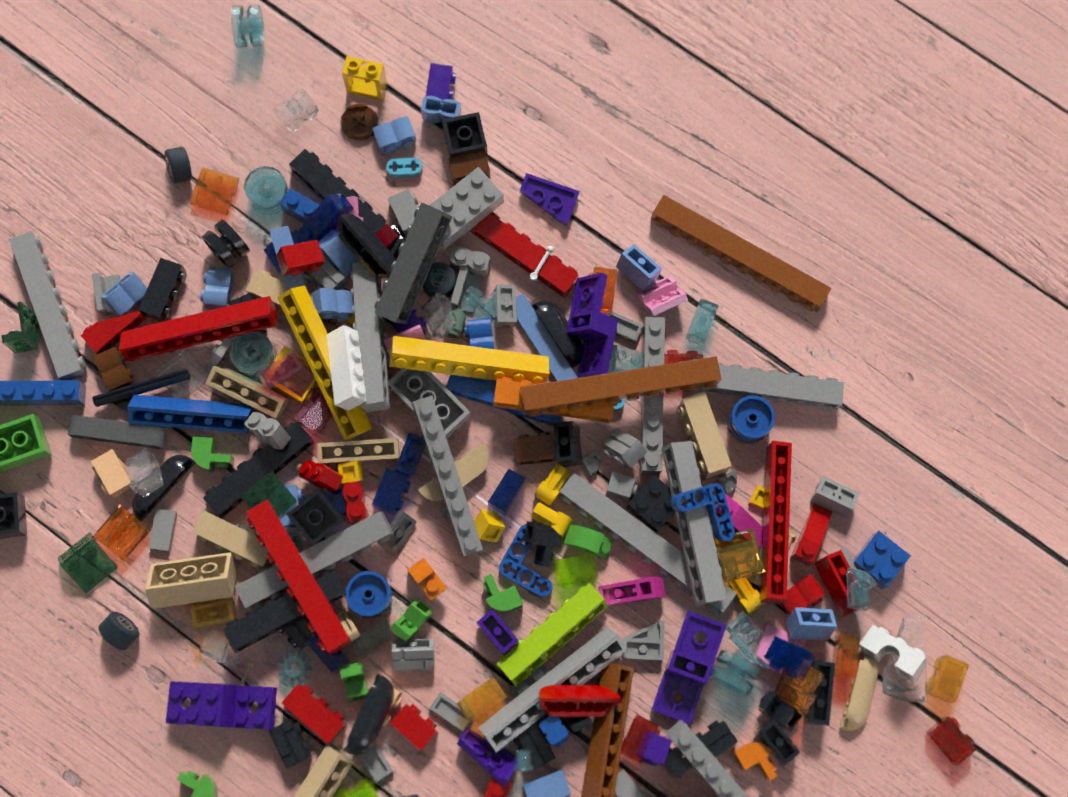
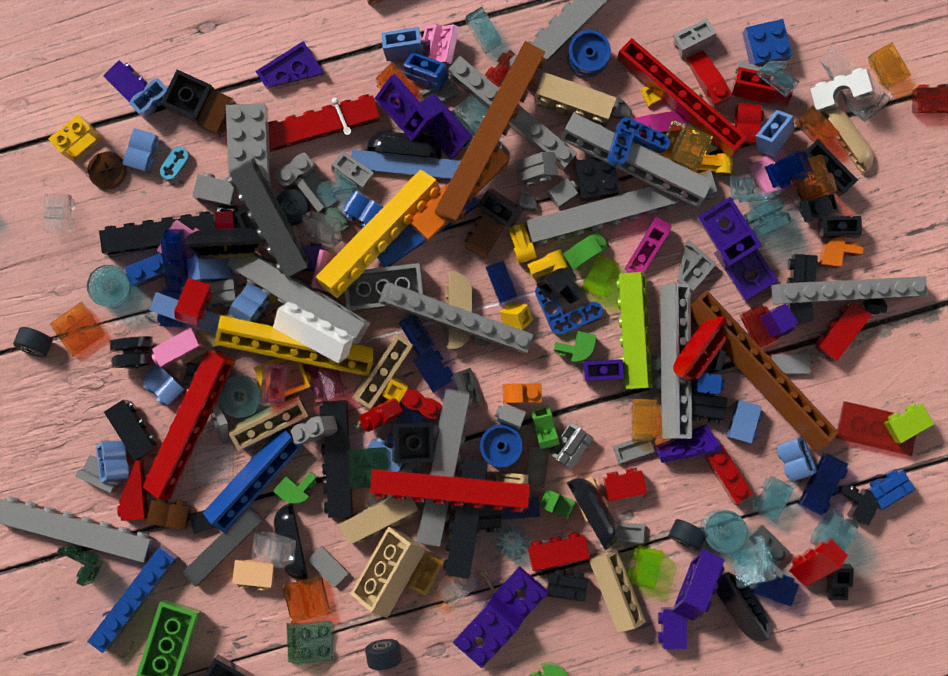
camera: 50 degrees left, 10 degrees up
(141, 387) = (200, 503): black axle -> none
(255, 274) = (178, 347): none -> bright pink slope
(399, 583) = (510, 415): none -> light grey brick
(523, 761) = (713, 423): clear light blue piece -> none
(631, 301) = (426, 71): none -> blue brick

